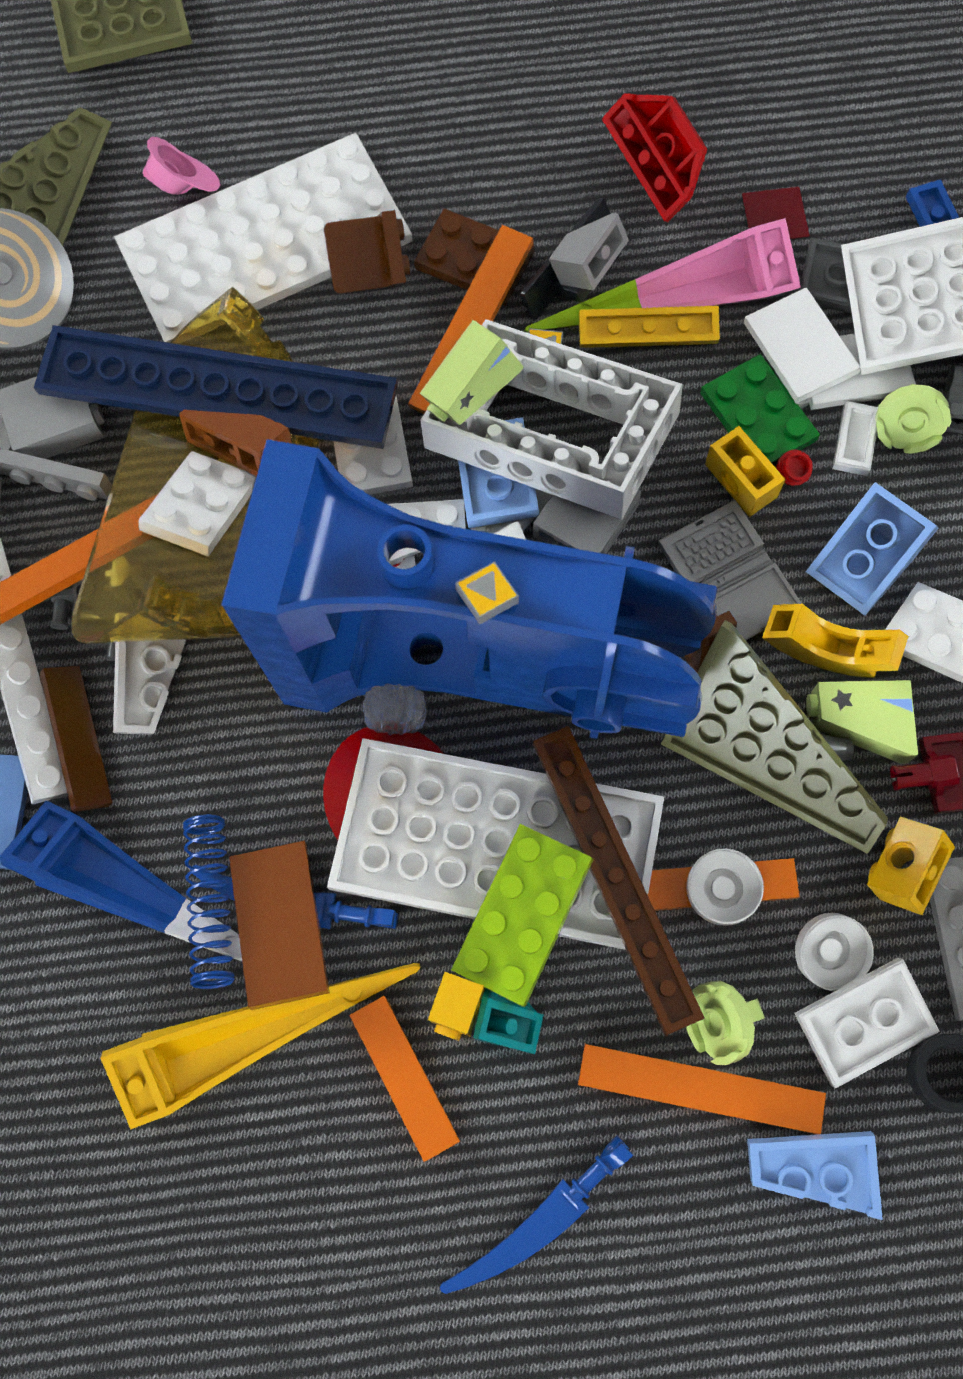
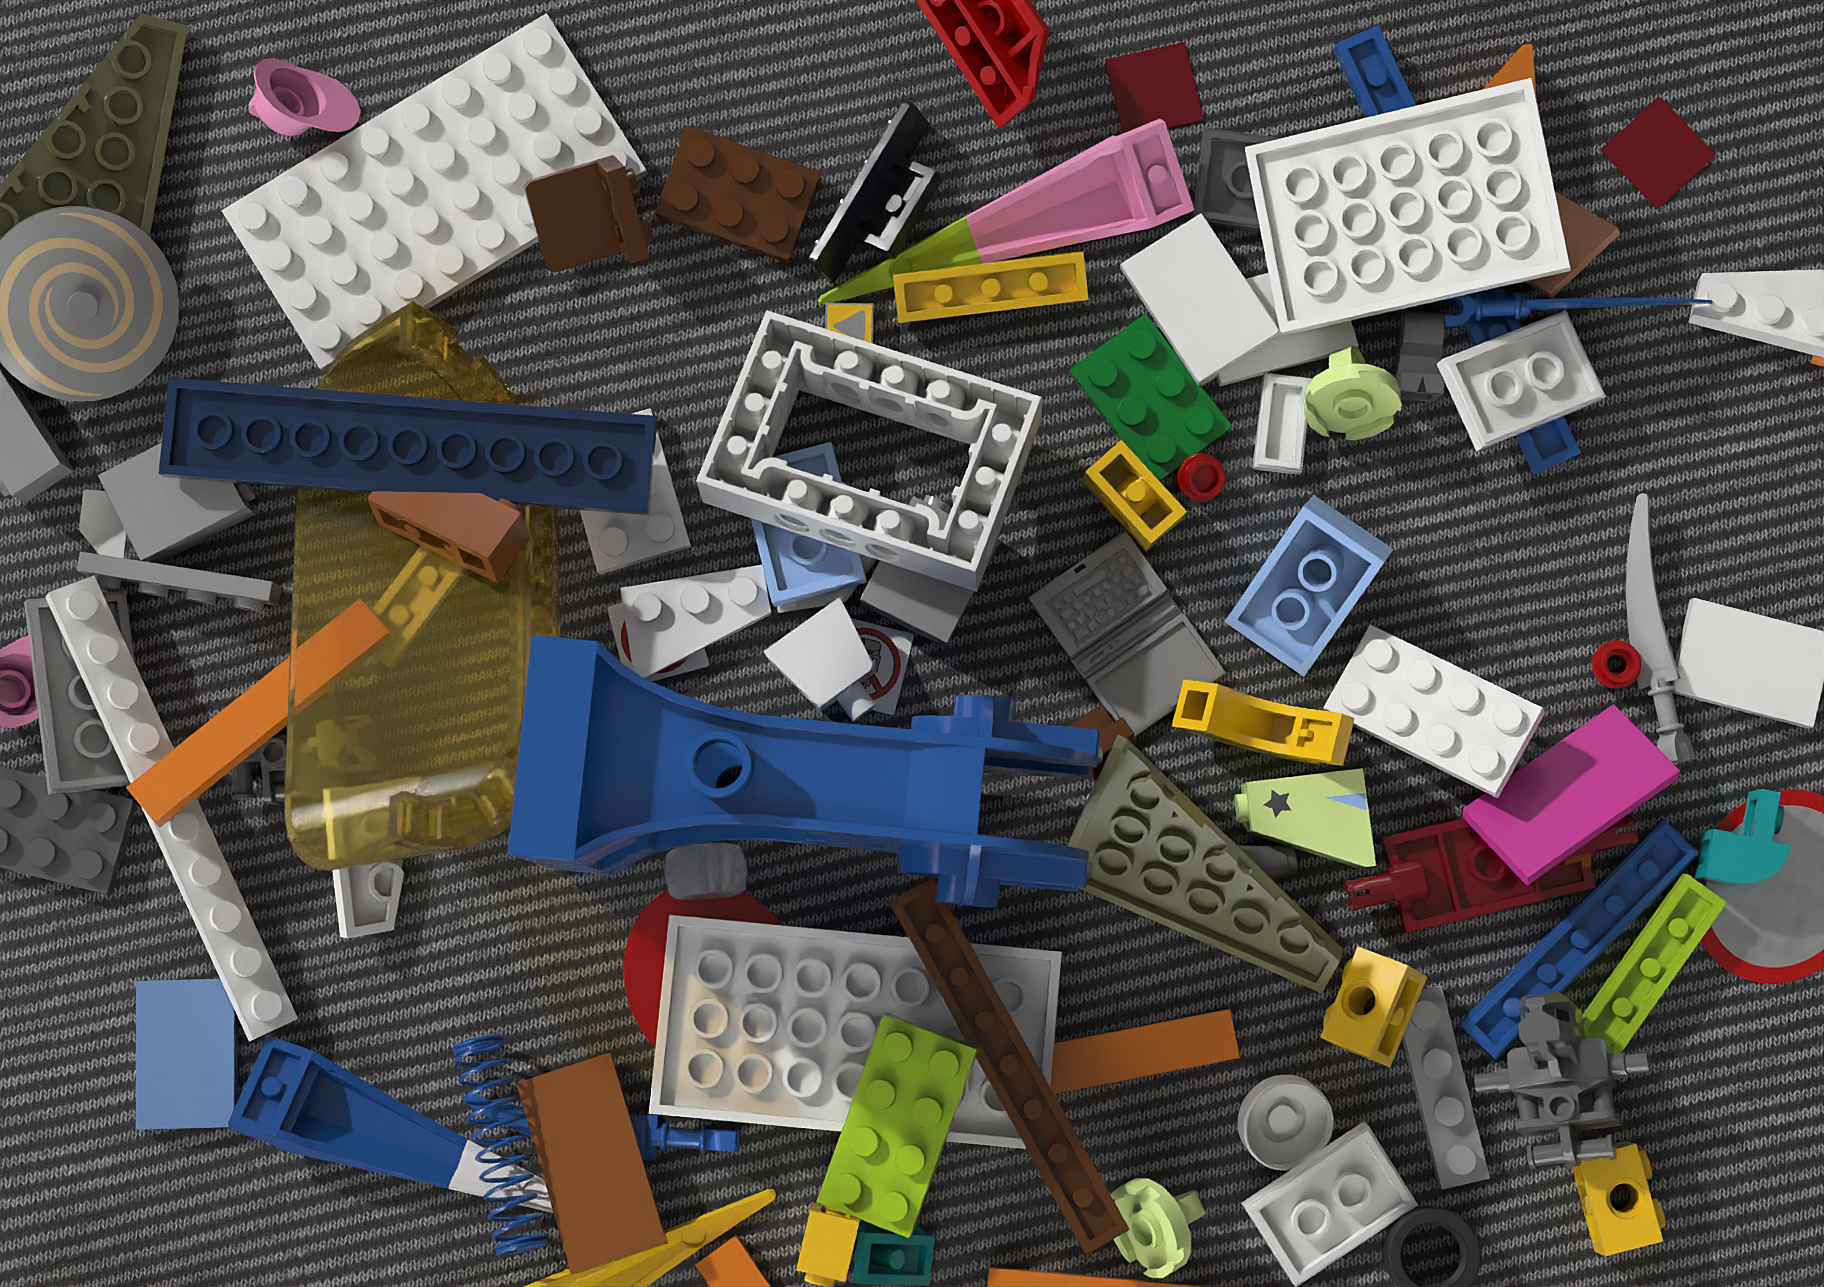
camera: 15 degrees left, 10 degrees up
(75, 738) = (291, 947): reddish brown tile -> none
(198, 503) = (414, 626): white plate -> none
(470, 374) = (757, 420): yellowish green slope -> none
(482, 298) = (746, 299): orange tile -> none
(487, 592) = (821, 800): tile -> none
(589, 252) = (898, 195): light grey slope -> none
(725, 887) = (1145, 1058): white piece -> none

